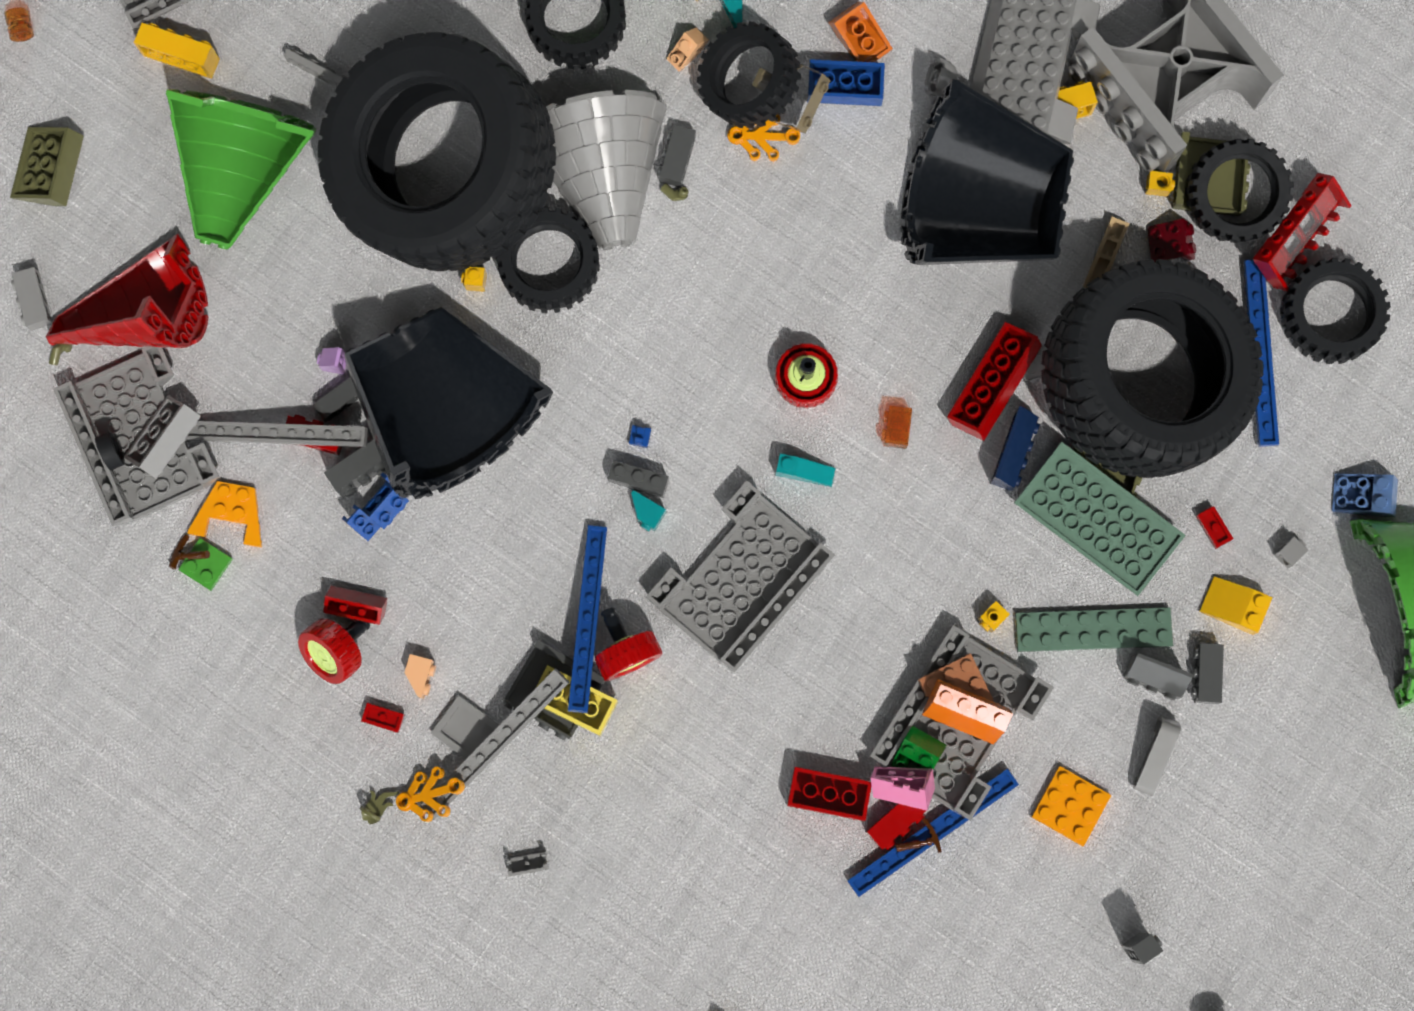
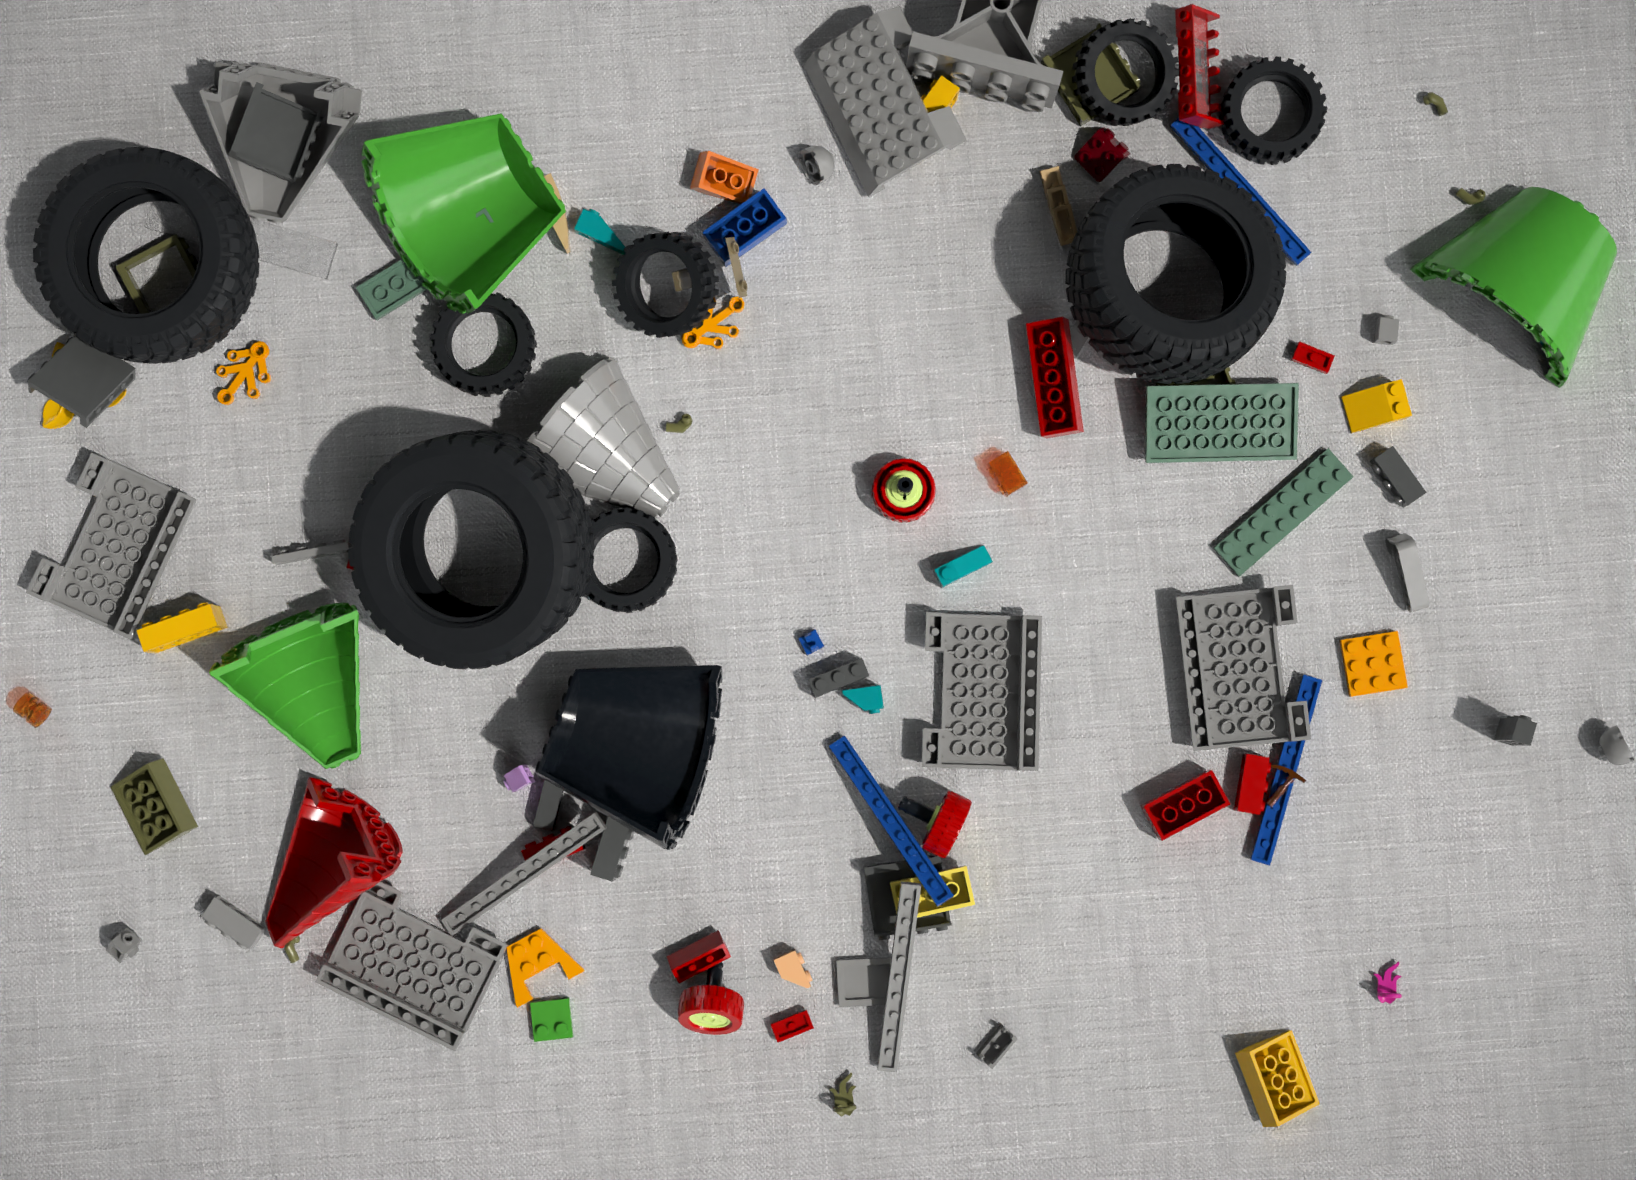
camera: 40 degrees left, 5 degrees up
(109, 450) = (403, 994): black tyre -> none
(162, 436) = (434, 949): light grey slope -> none
(178, 555) = (524, 1030): reddish brown piece -> none
(377, 512) = (655, 870): blue bracket -> none
(427, 794) = (876, 1057): light orange plant -> none
(474, 279) = (578, 622): yellow brick -> none
(676, 155) = (657, 393): dark grey brick -> none
(687, 48) = (594, 299): light nougat slope -> none
(904, 785) = (1239, 753): bright pink wedge -> none
(919, 750) = (1230, 719): green slope -> none
(960, 673) = (1219, 641): nougat plate -> none
(967, 712) = (1242, 657): orange slope -> none
(983, 186) = (925, 231): black cone -> none
(993, 617) = (1199, 565): yellow brick -> none
(1015, 448) = (1112, 419): dark blue slope -> none
(1152, 187) = (1050, 120): yellow brick -> none
(1157, 676) = (1361, 511): slope -> none
(1365, 494) = (1407, 239): medium blue slope -> none

